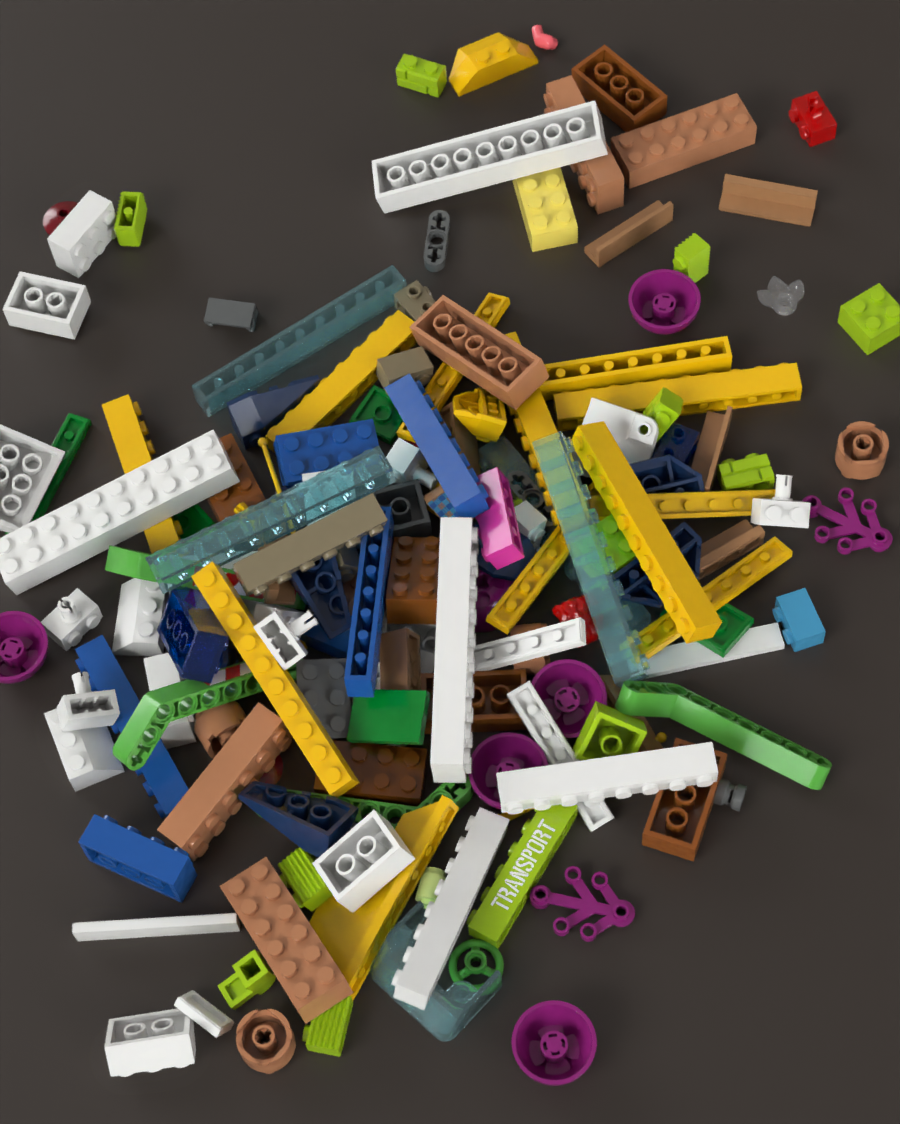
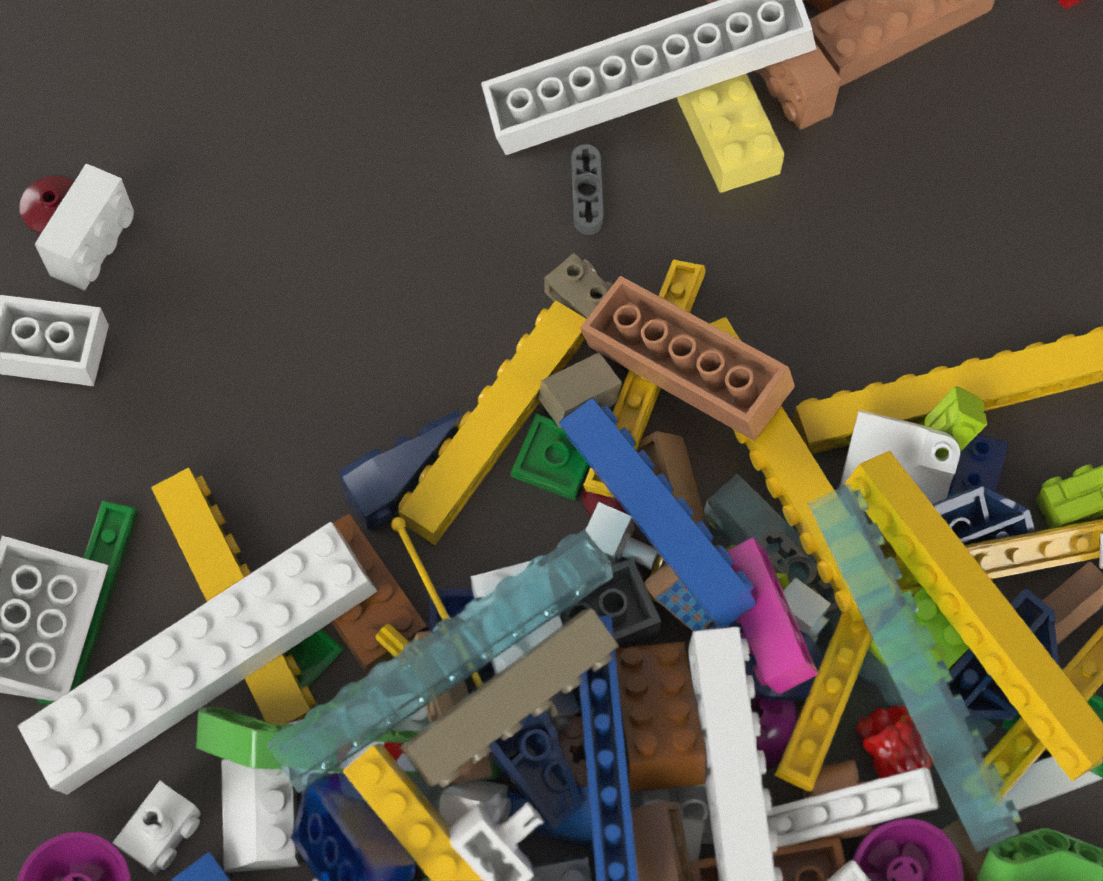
camera: 15 degrees left, 5 degrees up
(130, 219) = (148, 197): lime brick -> none
(231, 313) = (316, 327): dark grey hinge -> none
(298, 341) = (419, 362): clear light blue brick -> none
(321, 448) = (494, 531): blue brick -> none
(480, 414) = (704, 448): yellow wedge -> none
(629, 232) = (849, 154): medium nougat panel -> none
(638, 366) = (910, 352): yellow brick -> none
(664, 301) = (924, 253): magenta piece -> none
(692, 257) = (947, 190): lime brick -> none
(711, 446) = (1025, 458): medium nougat panel -> none
(768, 200) = (1027, 90): medium nougat panel -> none
(782, 294) = (1068, 224): clear plate -> none

